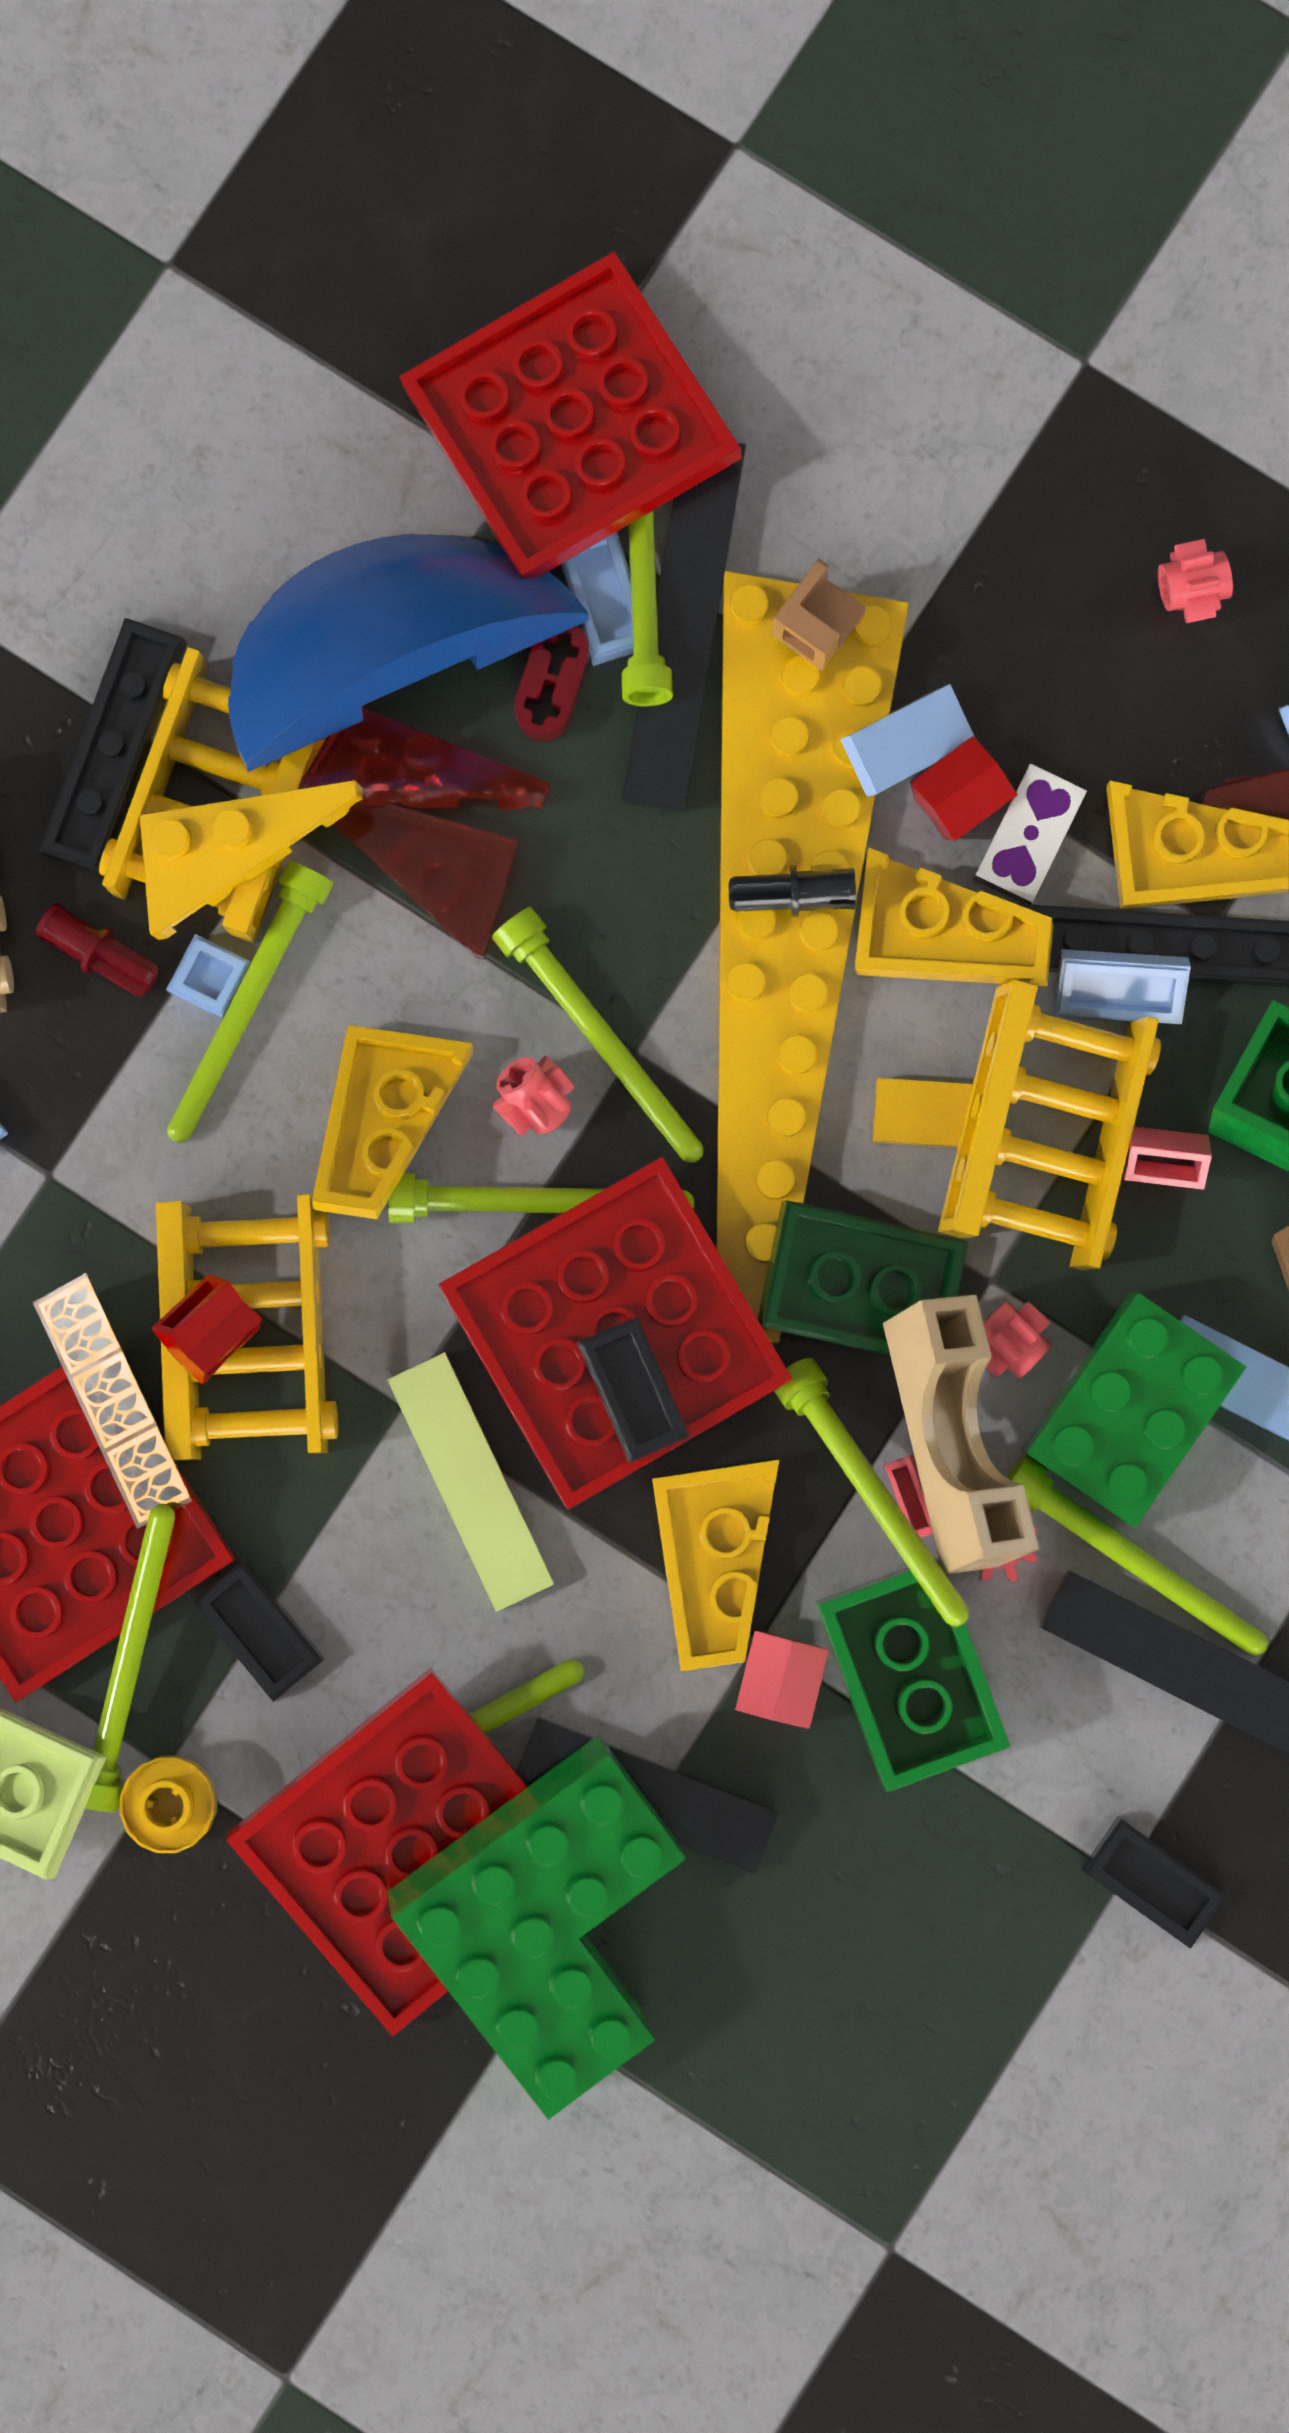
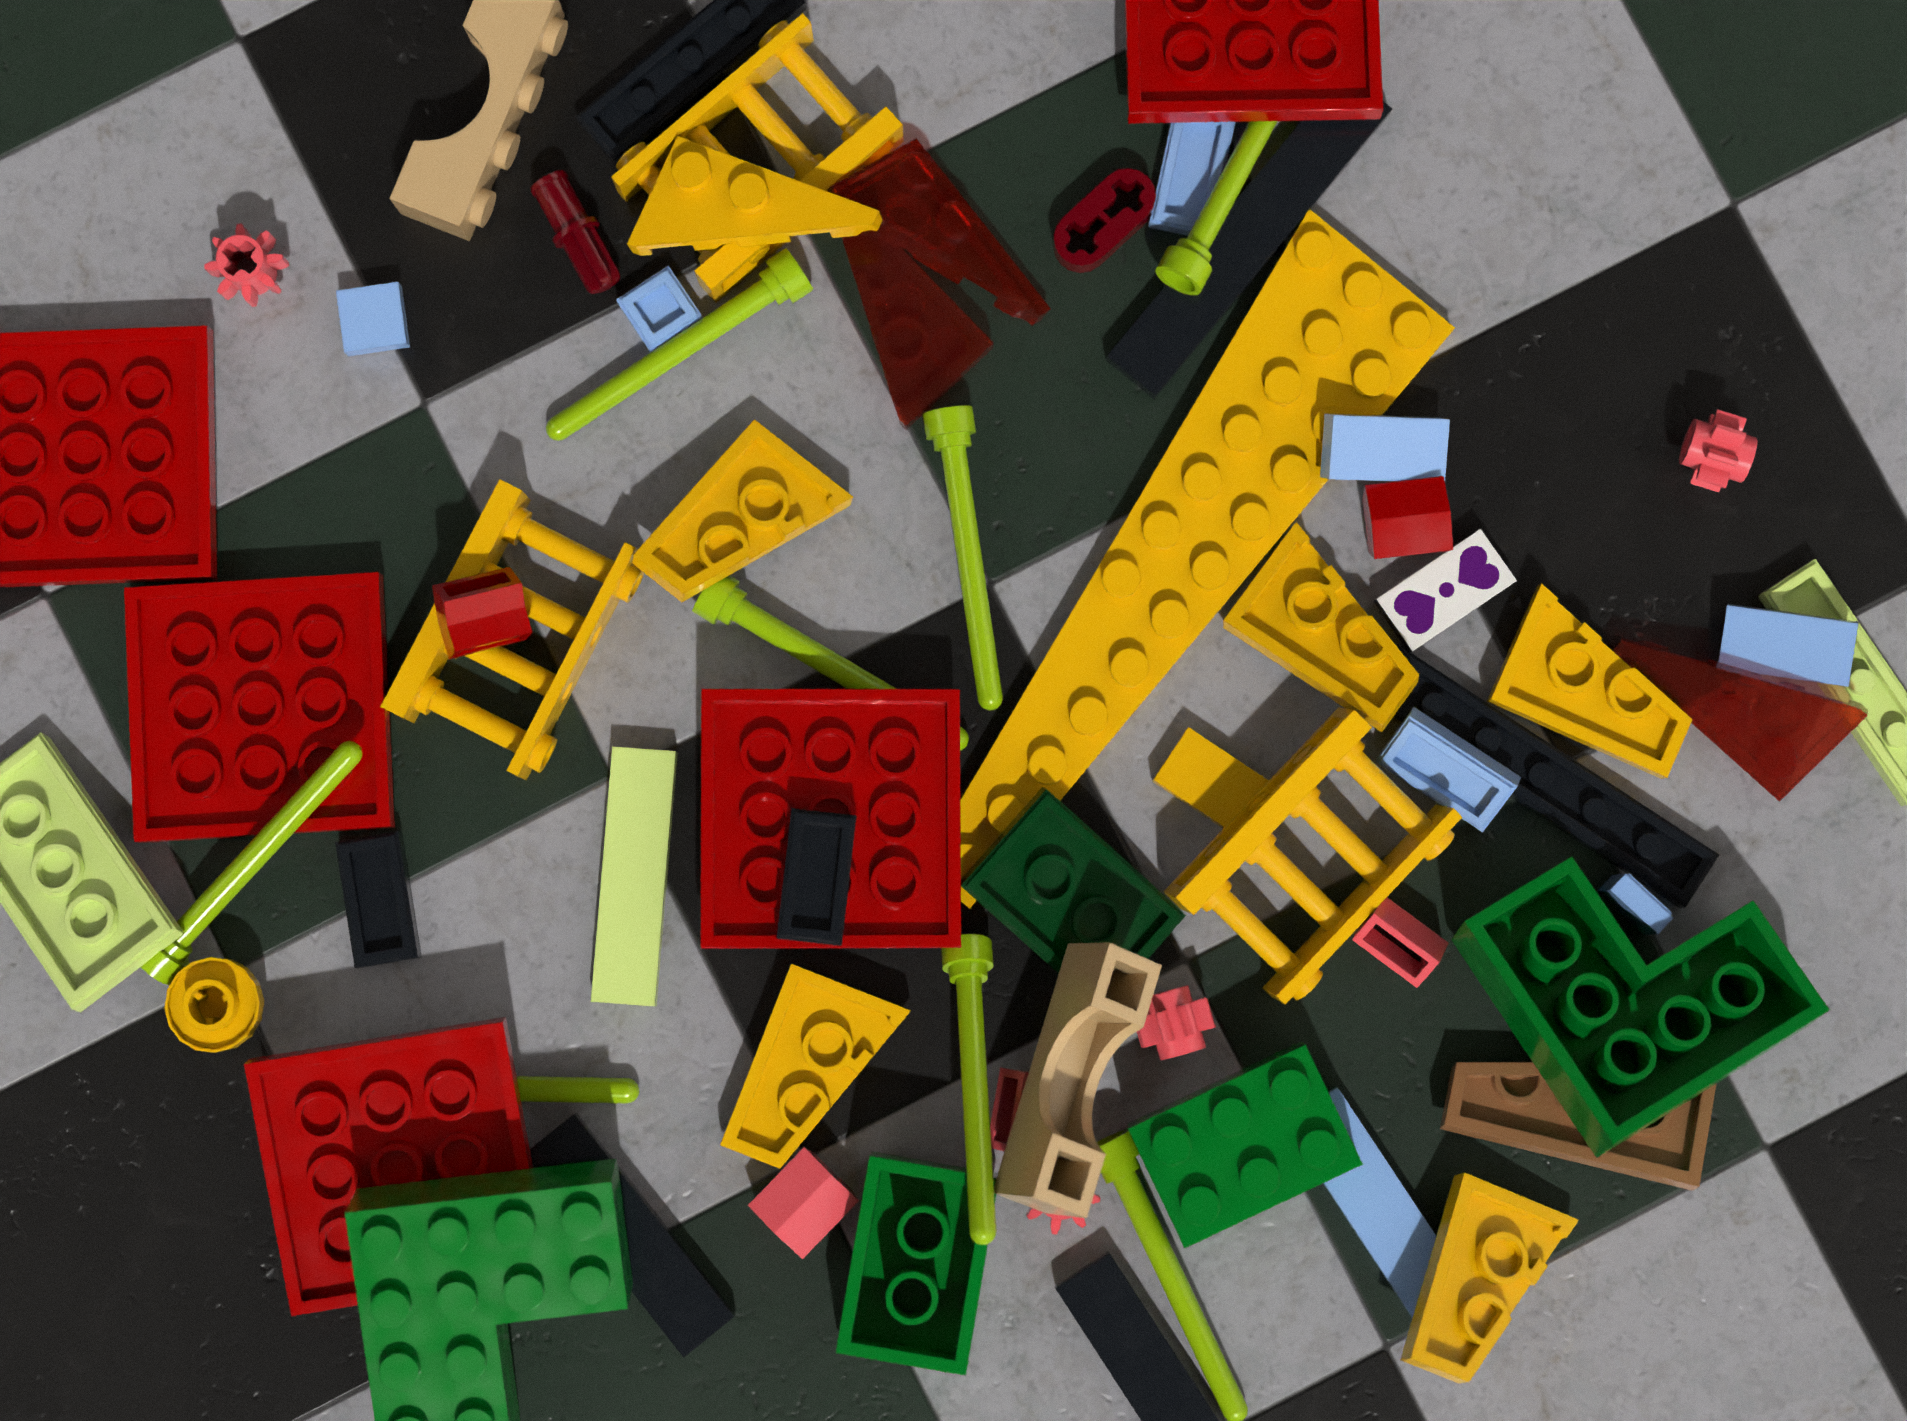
camera: 25 degrees right, 0 degrees up
(111, 1399) = (364, 627): sticker -> none
(376, 624) = (977, 84): blue brick -> none
(533, 1095) = (879, 572): coral gear -> none
(794, 891) = (1207, 523): black axle -> none
(817, 617) = (1365, 295): medium nougat panel -> none

